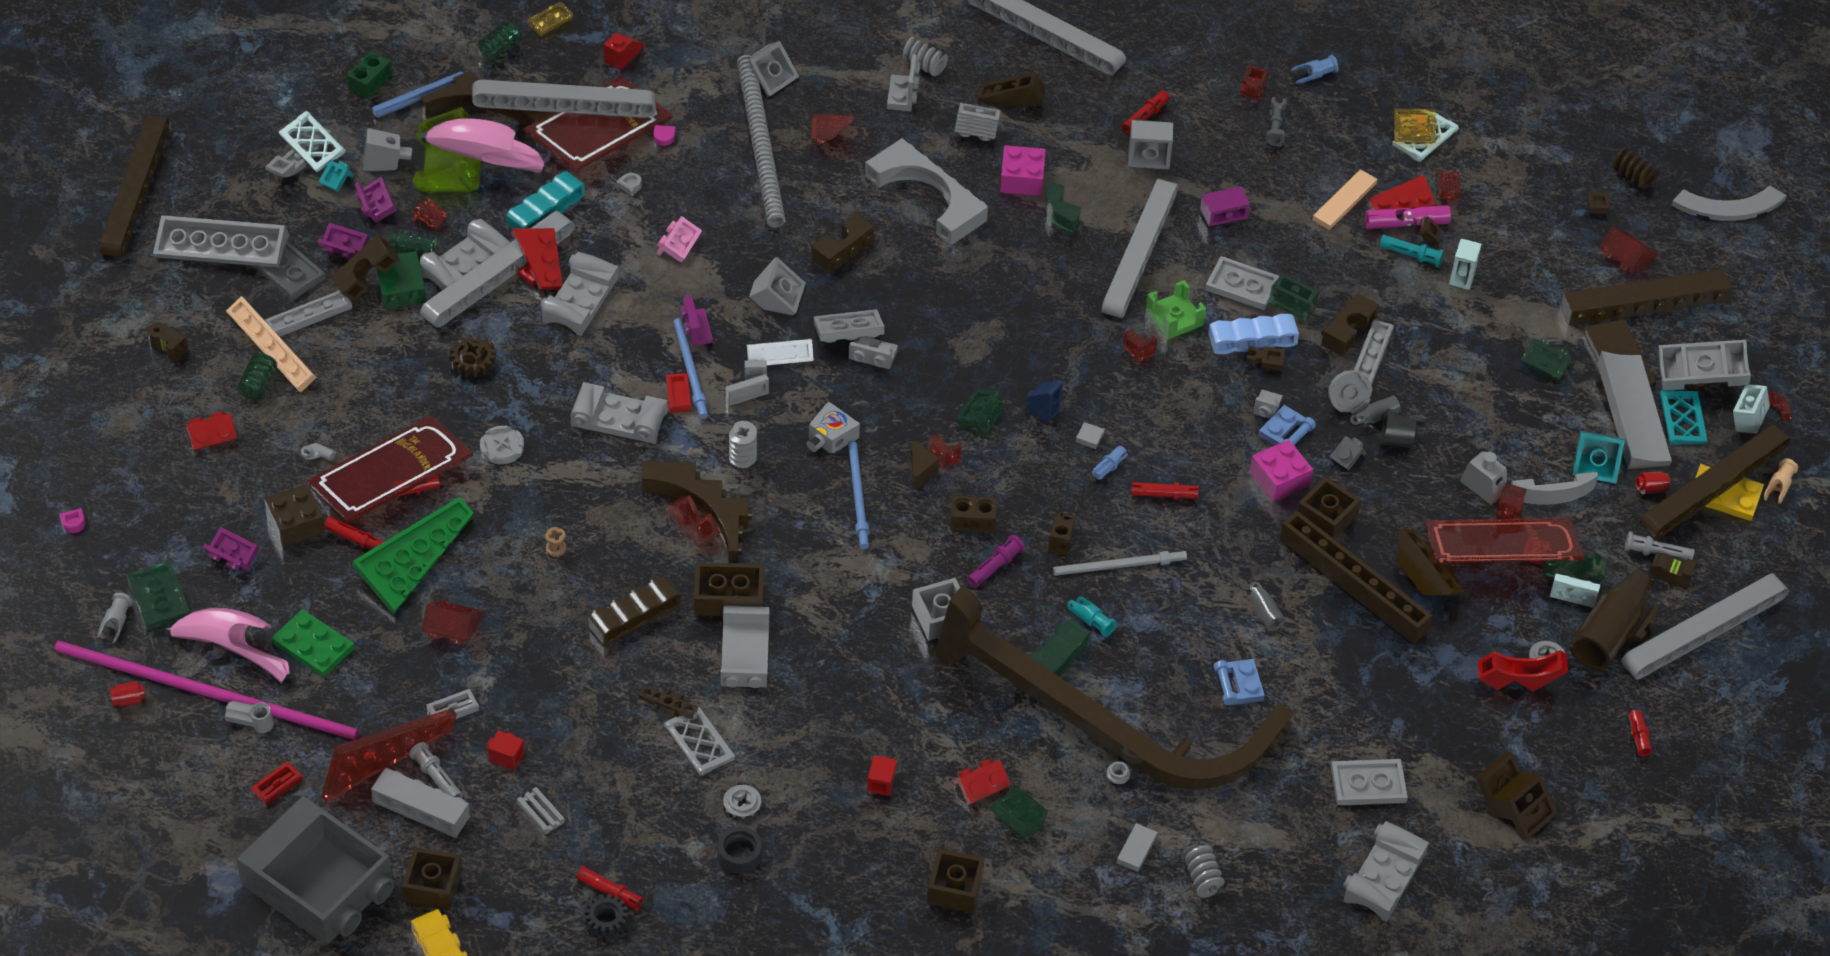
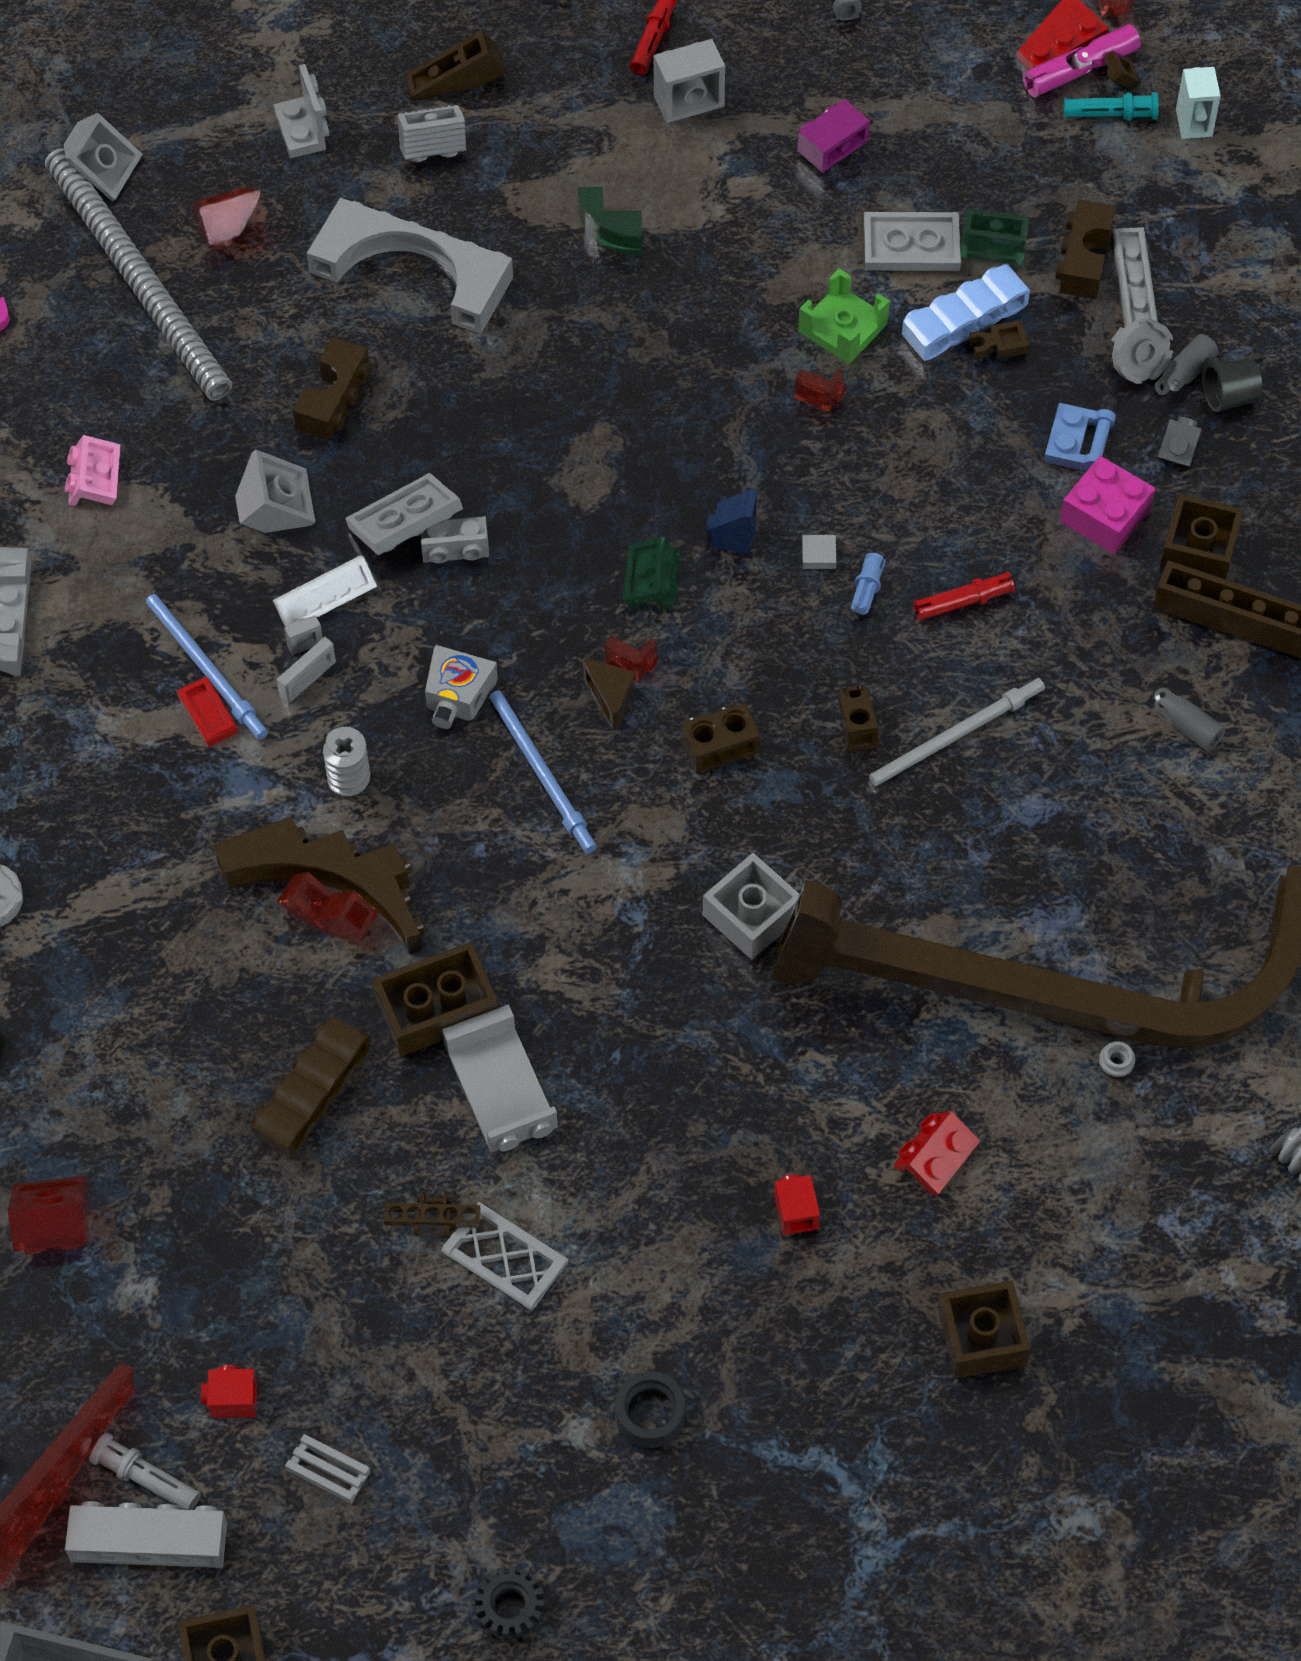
camera: 20 degrees left, 10 degrees up
(462, 709) = (130, 1358): light grey tile -> none
(558, 540) = (141, 1025): medium nougat bush -> none
(609, 887) = (491, 1553): red pin -> none
(618, 414) = (137, 780): light grey piece -> none
(696, 322) = (182, 593): magenta bracket -> none
(738, 793) = (627, 1318): light grey gear -> none
(929, 60) = (320, 64): light grey piece -> none
(1002, 555) = (791, 787): magenta pin -> none
(1020, 811) = (1015, 1179): clear green bracket -> none
(1022, 170) = (530, 184): dark pink brick -> none
(1062, 647) = (945, 898): clear green brick -> none
(1092, 616) = (960, 828): teal piece -> none
(1137, 847) = (1199, 1164): light grey tile -> none
(1139, 248) = (747, 242): light grey beam -> none
(1245, 678) = (1217, 843): medium blue plate -> none
(1267, 404) = (1035, 410): light grey bracket -> none
(1344, 199) = (983, 65): light nougat tile -> none

